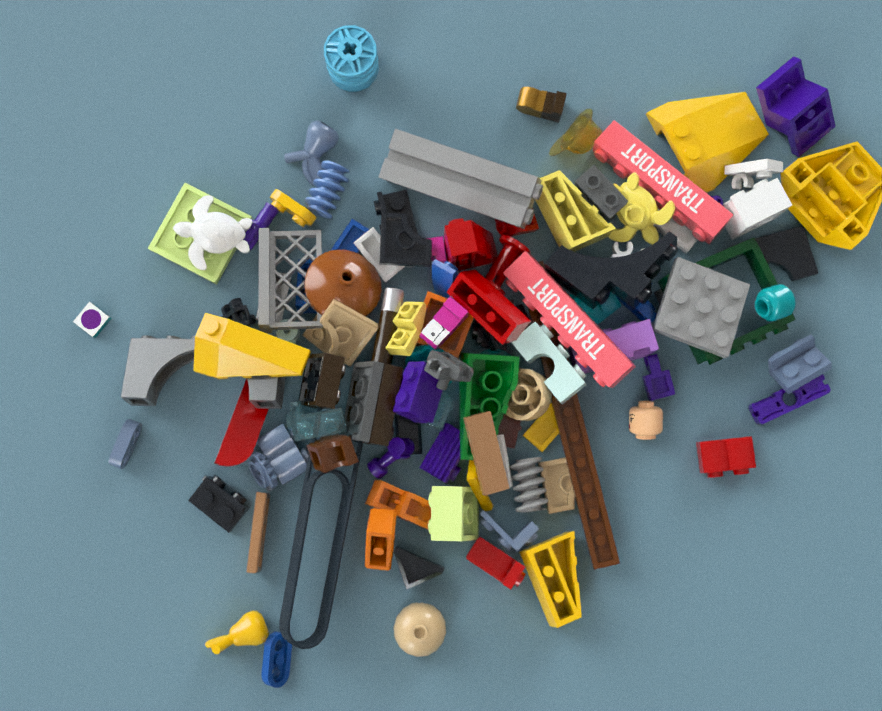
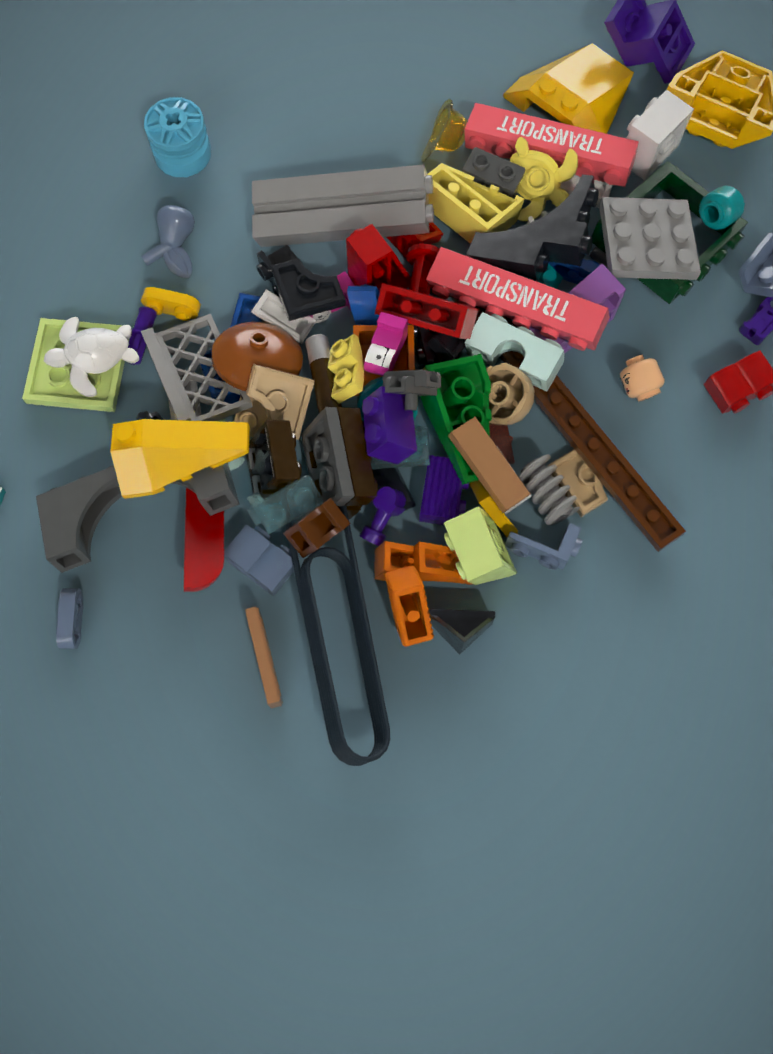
camera: 20 degrees left, 10 degrees down
(219, 503) = (205, 642): black bracket -> none
(247, 631) = (296, 774): yellow piece -> none
(262, 471) = (234, 577): sand blue gear -> none
(277, 659) = (342, 796): blue plate -> none
(326, 189) = (201, 269): medium blue piece -> none
(419, 629) = (494, 696): tan cylinder -> none
(496, 563) = (550, 588): red bracket -> none
(541, 103) = (394, 118): leg -> none
(543, 430) = (536, 431): yellow tile -> none
(554, 578) = (621, 576): yellow wedge -> none
(657, 383) = (634, 337): dark purple plate -> none
(744, 171) = (635, 99): white plate -> none
(790, 252) = (710, 168): black tile -> none

